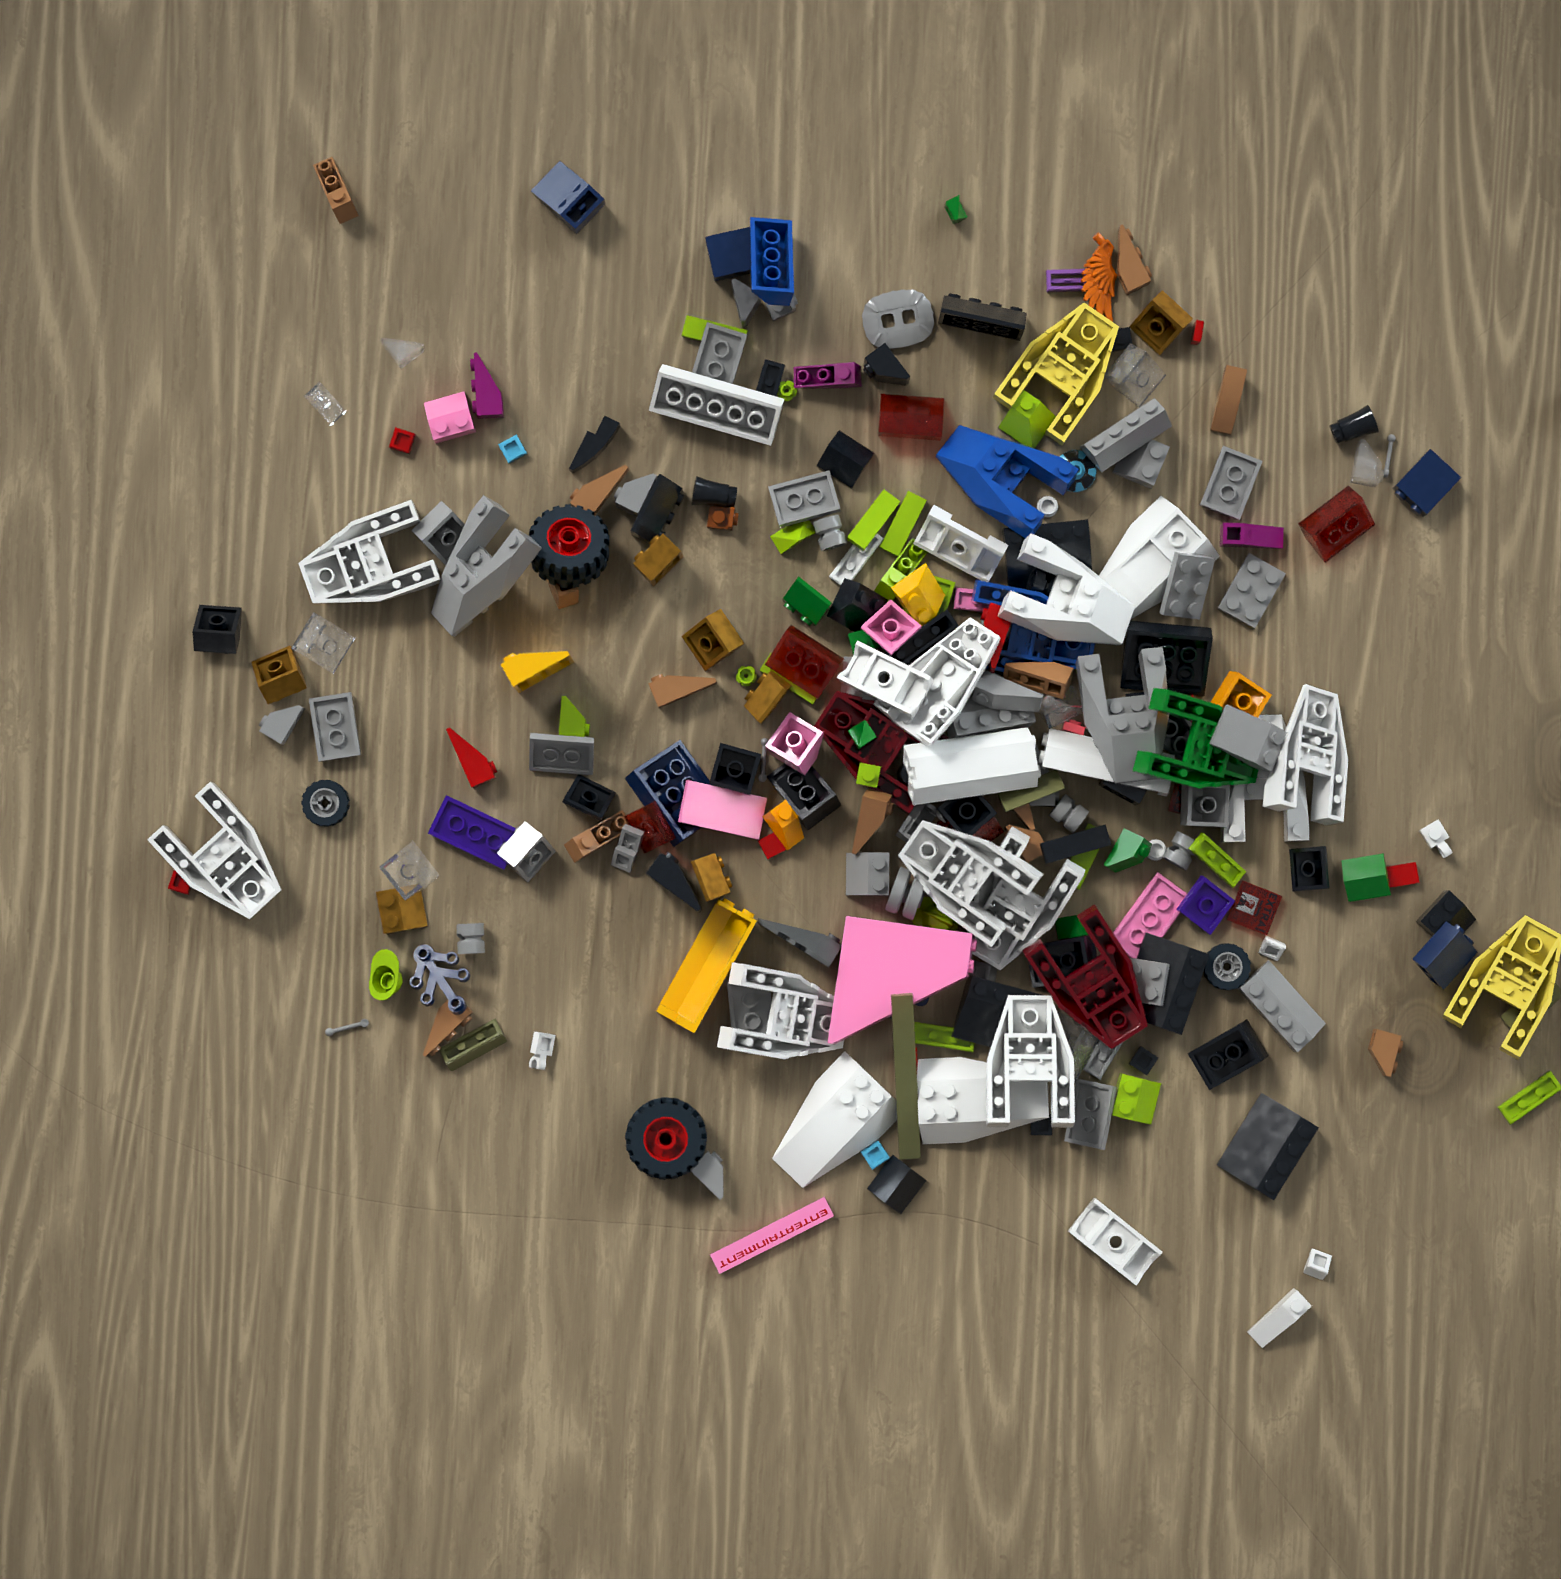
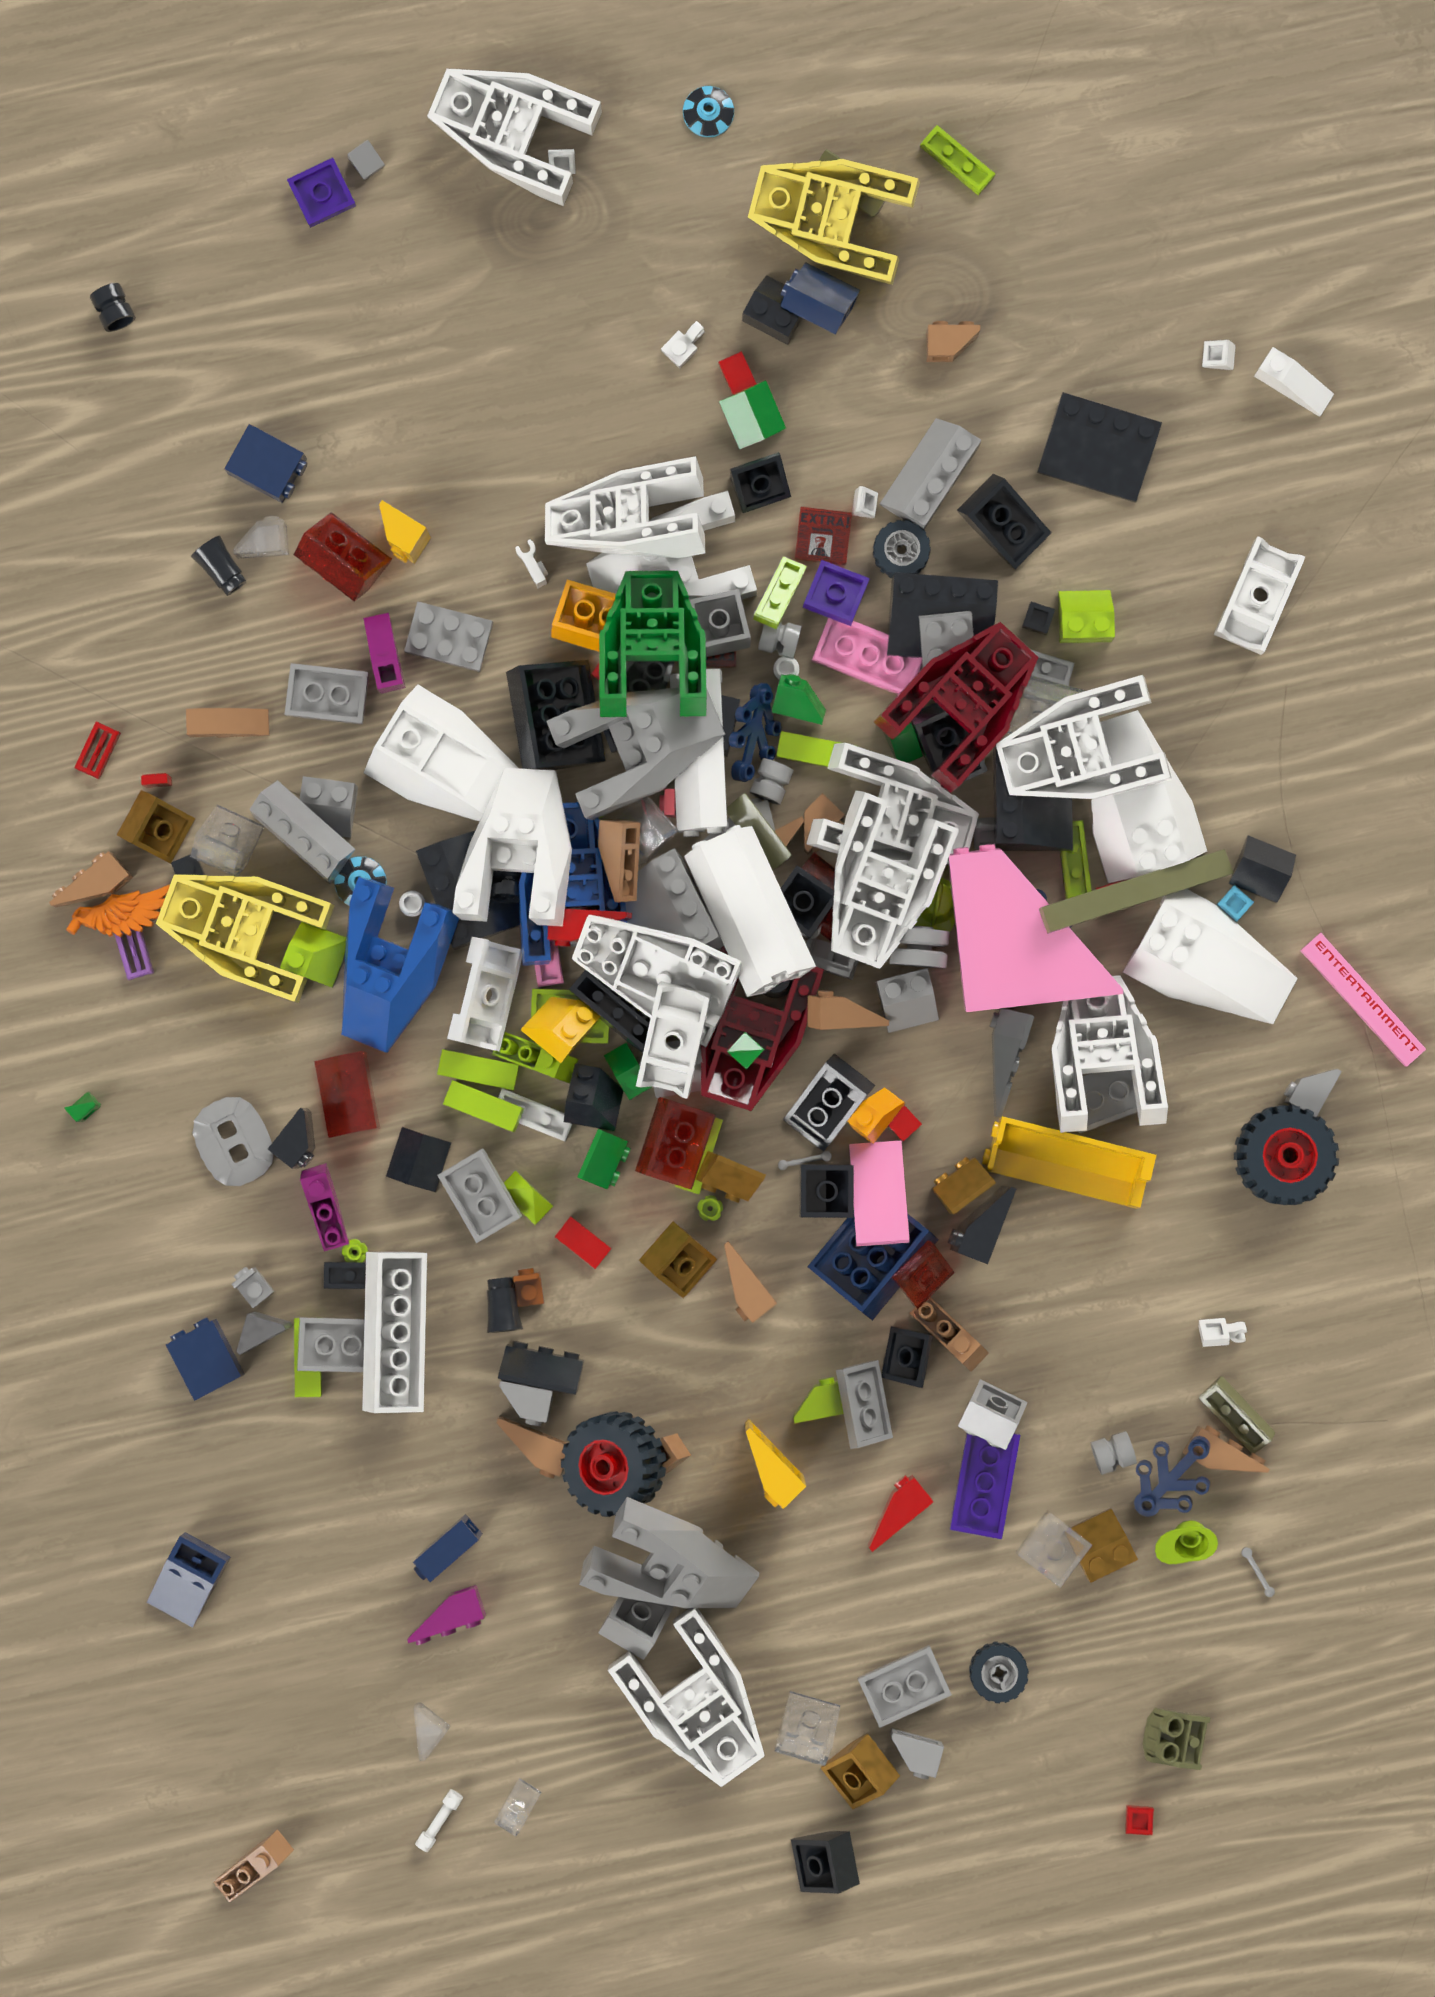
camera: 100 degrees left, 0 degrees up
(229, 865) = (1106, 1767): white wedge -> none
(236, 930) = (1175, 1738): none -> olive slope
(341, 353) = (427, 1838): none -> white bar
(402, 440) = (537, 1700): red tile -> none
(449, 417) = (494, 1650): bright pink slope -> none
(512, 449) = (512, 1563): medium azure tile -> none
(538, 401) = (446, 1548): none -> dark blue brick
(594, 444) = (480, 1465): black slope -> none
(627, 848) = (954, 1294): light grey slope -> none
(657, 559) = (600, 1352): pearl gold slope -> none
(746, 569) = (583, 1242): none -> red tile
(772, 260) = (202, 1312): blue slope -> none
(796, 743) = (776, 1126): bright pink slope -> none
(830, 533) = (512, 1154): light grey wheel -> none
(868, 775) = (792, 1030): lime plate -> none
(891, 627) = (608, 1050): bright pink slope -> none
(982, 317) = (205, 1040): black slope -> none
(1004, 694) = (653, 894): light grey slope -> none
(1041, 1127) = (1150, 715): black plate -> none
(1075, 844) = (806, 763): black slope -> none
(1092, 1114) = (1118, 659): light grey plate -> none
(1134, 820) = (760, 699): none -> dark blue plant
(1187, 585) = (464, 712): light grey plate -> none
(1228, 299) = (106, 755): none -> red tile
(1248, 738) = (629, 590): light grey slope -> none
(1286, 673) = (535, 569): none -> white plate
(1341, 575) = (403, 533): none -> yellow slope
(1391, 438) = (223, 519): light grey hinge -> none

